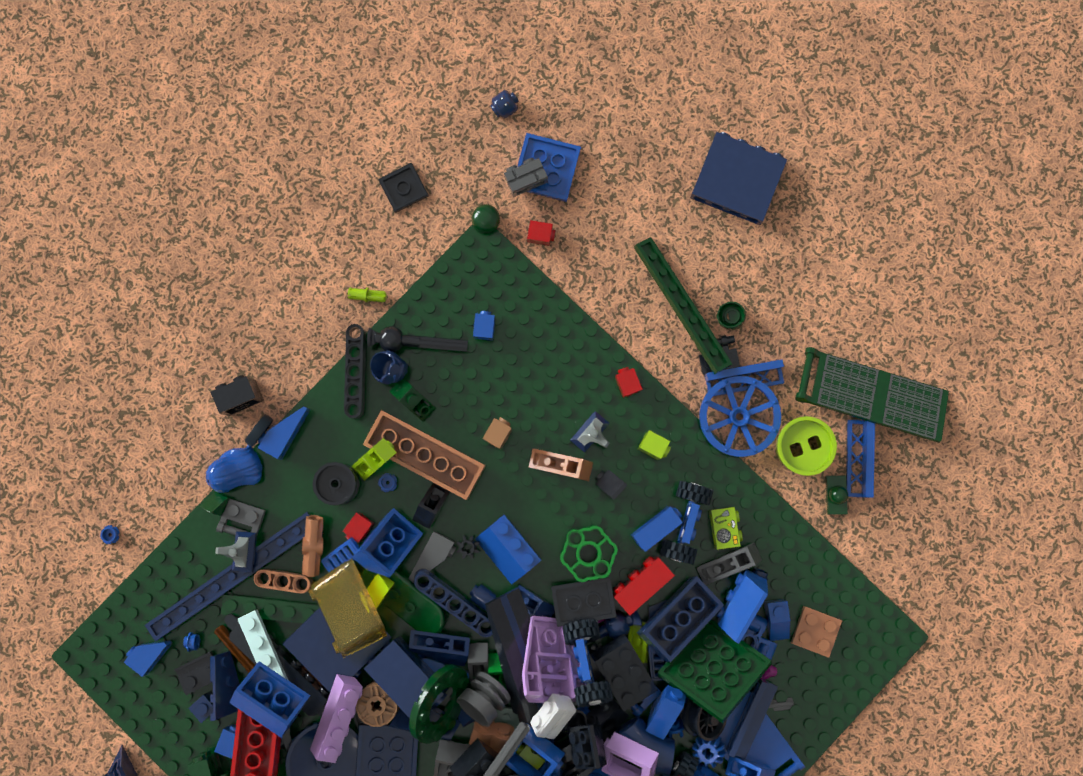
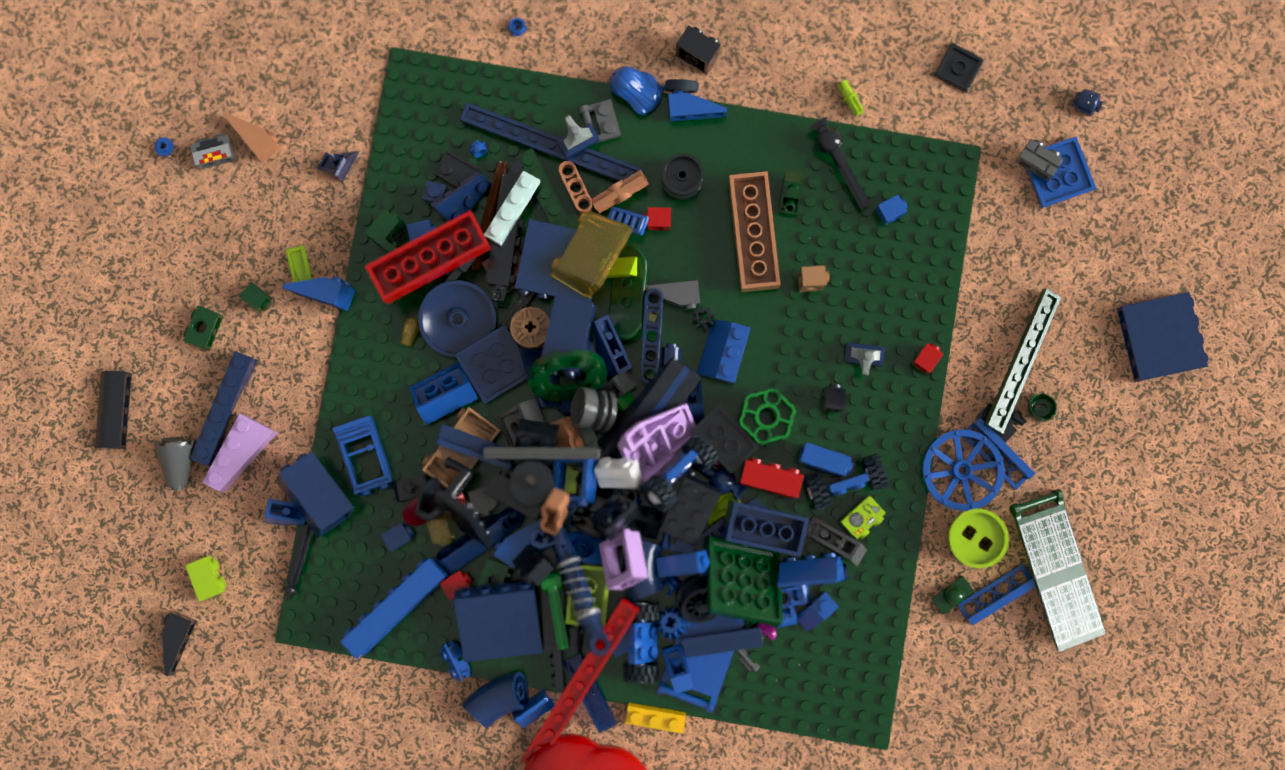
camera: 55 degrees right, 0 degrees up
(146, 656) = (443, 121): blue slope -> none
(215, 503) = (600, 92): dark green slope -> none
(269, 699) = (484, 234): blue slope -> none
(336, 718) = (499, 301): lavender brick -> none
(350, 363) = (787, 123): black beam -> none
(374, 458) = (724, 192): lime slope -> none
(387, 477) = (710, 213): blue plate -> none
(388, 367) = (804, 154): dark blue hair -> none
(388, 544) = (663, 249): blue slope -> none
(430, 505) = (716, 265): black slope -> none
(485, 218) = (981, 151): dark green hair -> none
(540, 233) = (1000, 204): red brick -> none
(561, 464) = (822, 349): nougat slope -> none
(654, 445) = (891, 413): lime brick -> none
(816, 631) = (828, 650): nougat plate -> none

